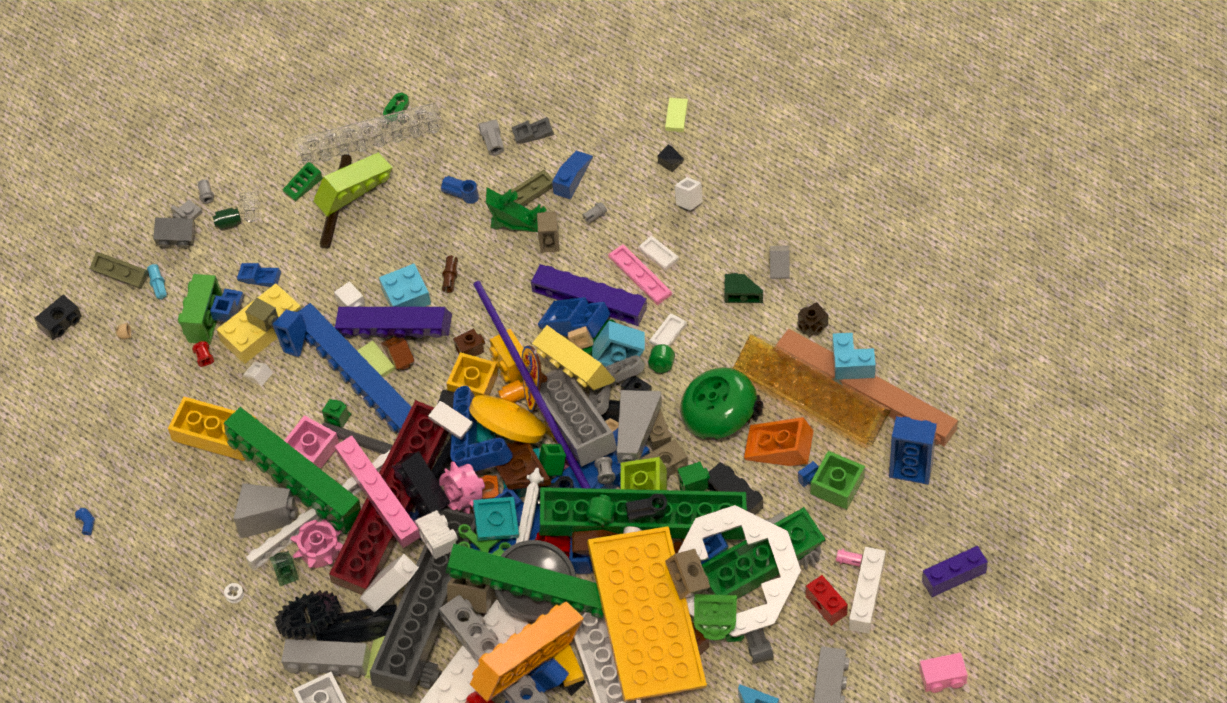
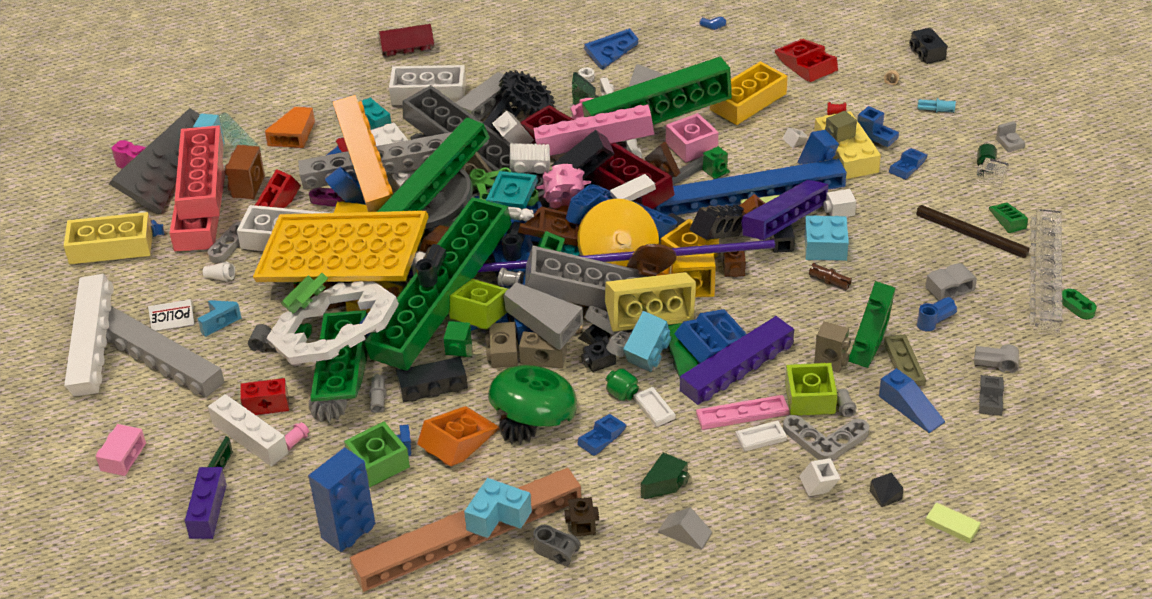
camera: 115 degrees right, 15 degrees down
(118, 269) = (962, 86): olive plate -> none
(123, 410) = (807, 59): none -> red slope
(174, 232) = (985, 120): dark grey brick -> none
(174, 592) = (610, 48): none -> blue wing
(196, 314) = (896, 107): bright green brick -> none
(206, 195) = (1030, 154): light grey pin -> none
(351, 182) = (980, 232): lime wedge -> none
(371, 440) = (663, 159): none -> reddish brown wing
(416, 191) = (951, 281): none -> light grey brick
(446, 352) = (718, 221): none -> black brick
(581, 337) = (678, 319): tan plate -> none
(599, 231) = (811, 389): none -> lime brick
(600, 510) = (450, 231): green head -> none
(642, 210) = (826, 443): none -> light grey beam
(687, 573) = (346, 273): dark tan brick -> none
(715, 352) = (604, 432): none -> blue slope
(812, 389) = (505, 464): clear yellow brick -> none
(845, 322) = (554, 544): none -> dark grey piece
(909, 597) = (222, 454): none -> dark green slope

